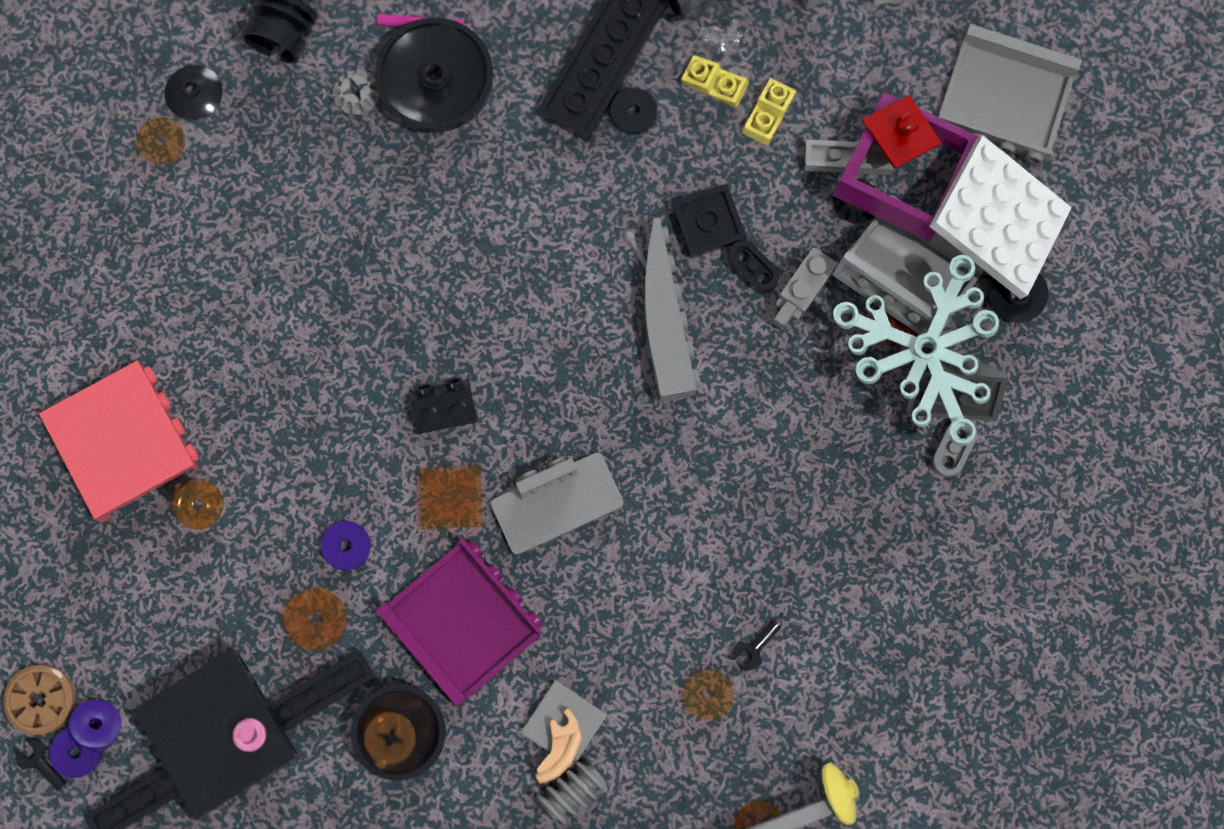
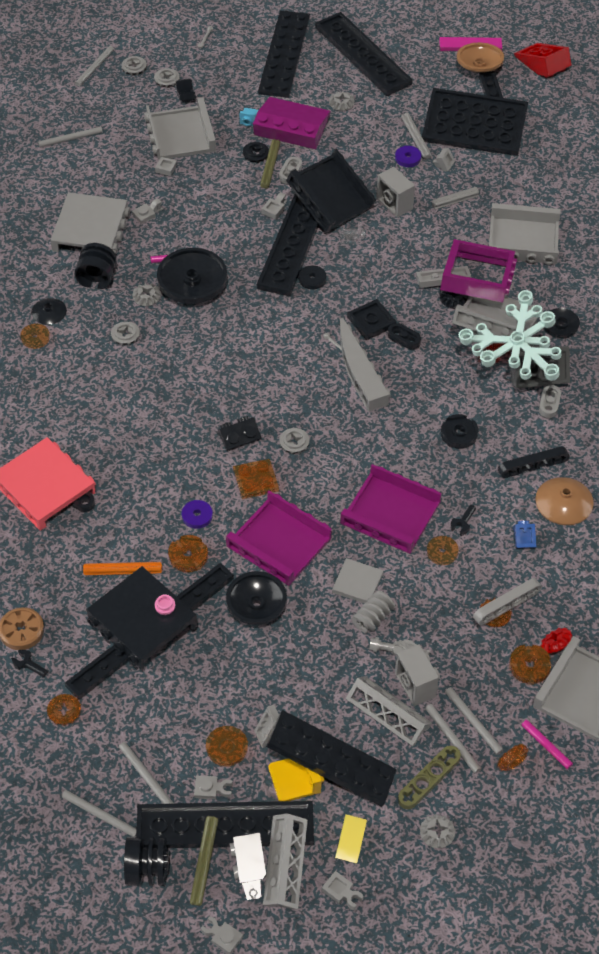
camera: 10 degrees left, 25 degrees down
(67, 765) = (50, 661): dark purple piece -> none
(91, 739) = (60, 633): dark purple piece -> none
(211, 504) = (94, 511): clear orange piece -> none
(211, 622) = (120, 568): none -> orange axle
(302, 153) = (120, 328): none -> light grey gear
(376, 745) = (245, 593): clear orange gear -> none
(537, 427) = (299, 435): none -> light grey gear
(556, 501) = (319, 467): light grey bracket -> none
(564, 749) = (361, 588): light nougat piece -> none
(648, 603) = (391, 509): none -> magenta panel
(713, 81) = (350, 255): light yellow slope -> none
(769, 111) = (391, 264): light yellow slope -> none
(804, 287) = (437, 337): light grey hinge -> none
(805, 464) = (455, 439): none -> black plate
(840, 793) = (541, 576): light yellow dish -> none
(843, 697) = (524, 535): none -> blue bracket
(894, 563) = (533, 462): none -> black beam
(901, 132) = (470, 252): red piece -> none
(903, 645) = (564, 508): none -> medium nougat dish
(1001, 217) = (548, 284): white plate -> none

